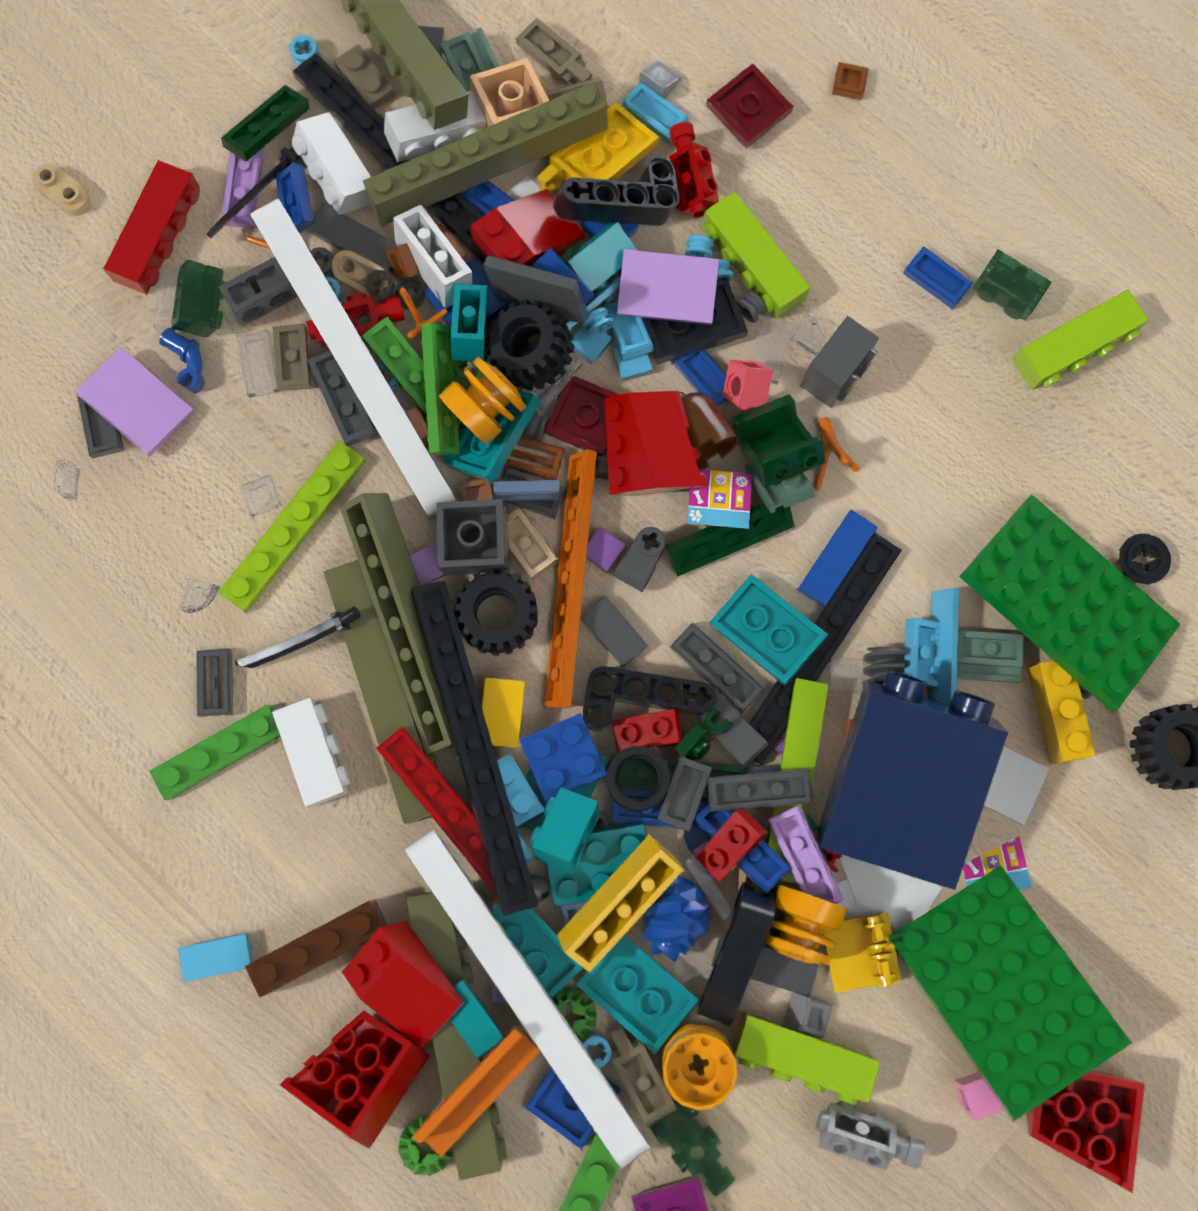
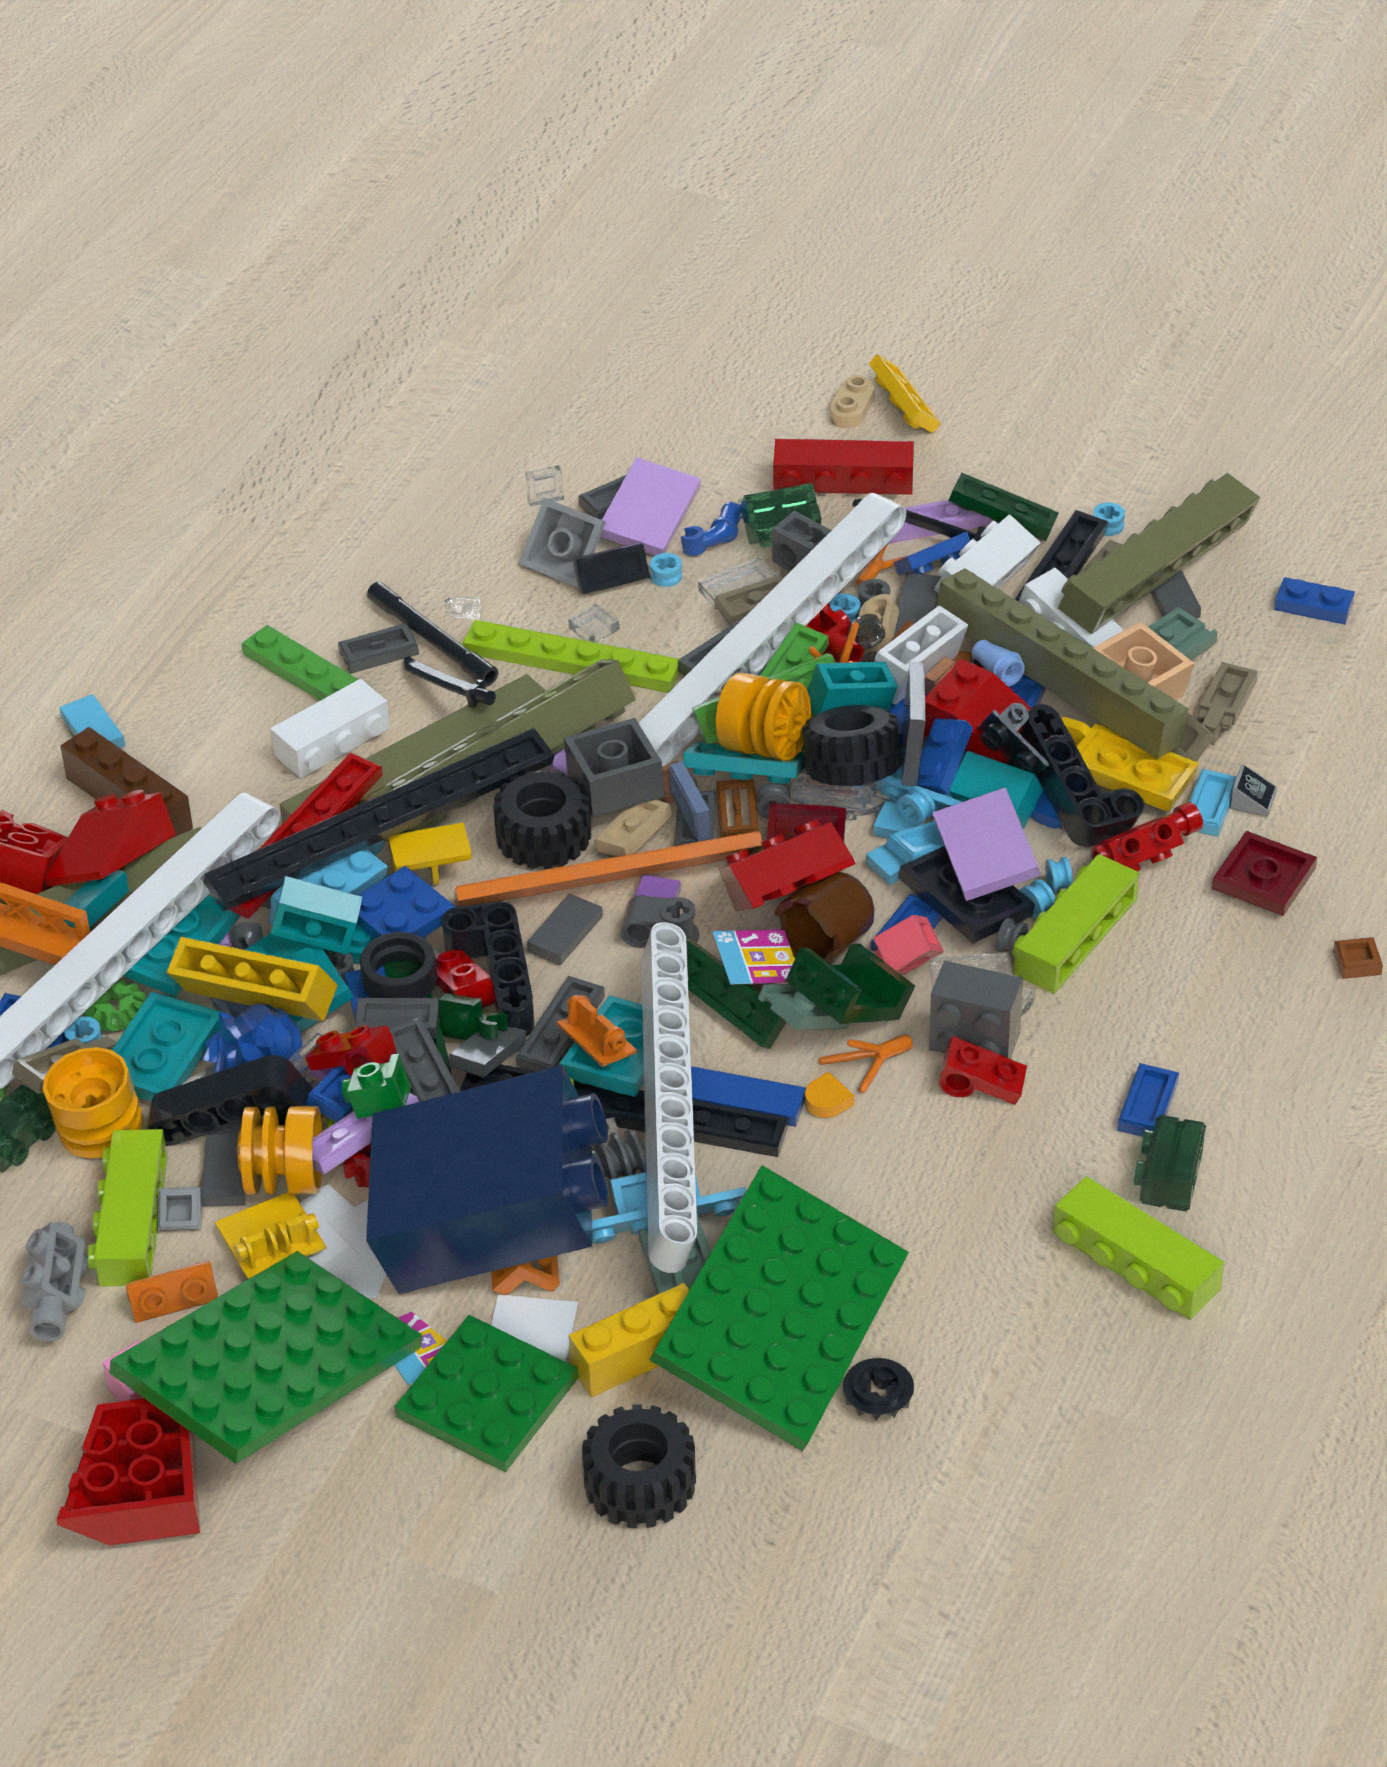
camera: 75 degrees right, 35 degrees down
(76, 145) = (903, 394): none -> yellow plate
(154, 485) = (557, 538): none -> light grey slope
(168, 653) = (469, 661): none -> black piece
(202, 459) = (611, 568): none -> black tile
(206, 414) = (666, 569): none -> medium azure bush
(462, 199) = (1001, 661): none -> light blue cone
(580, 219) = (1001, 734): none -> black hinge
(770, 647) = (594, 1032): none -> orange hinge
(799, 829) = (377, 1087): none -> green brick
(859, 496) = (827, 1097): none -> light orange tile
(871, 611) = (668, 1099): none -> white beam
(880, 380) = (975, 1068): none -> red plate
(896, 1057) = (171, 1291): none -> orange hinge
(1064, 833) = (486, 1393): none -> green plate

